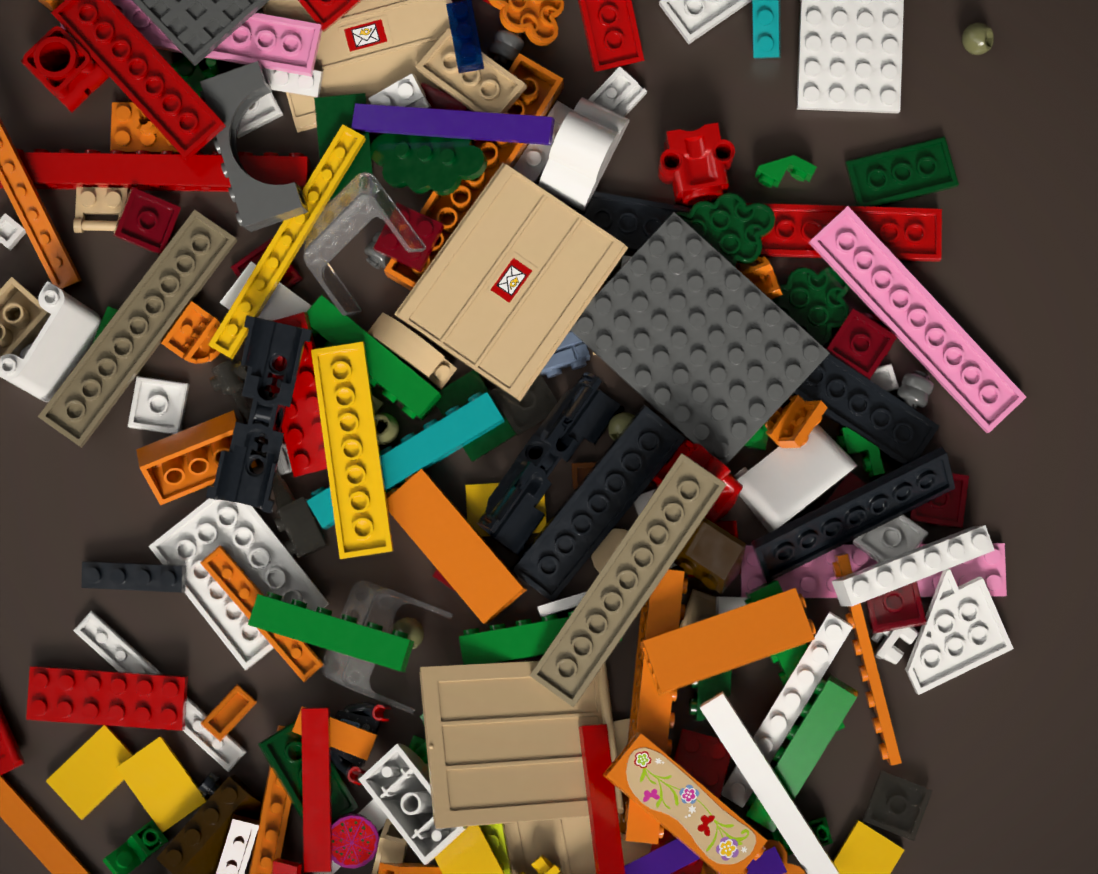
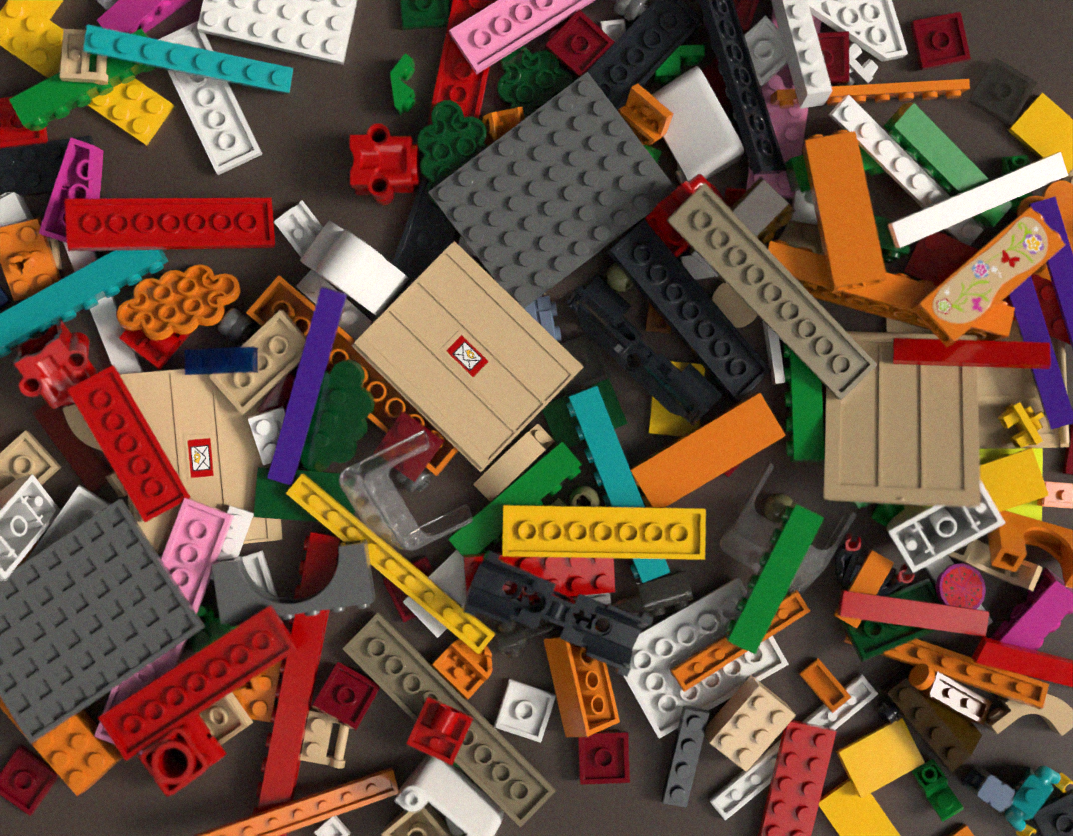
camera: 90 degrees left, 5 degrees up
(108, 105) = (226, 718): none -> tan tile
(120, 494) = (604, 758): none -> dark red plate
(124, 318) = (440, 730): none -> red plate
(177, 635) = (748, 723): none -> tan brick
(251, 809) = (921, 676): none -> orange tile
(939, 729) = (940, 41): none -> dark red plate

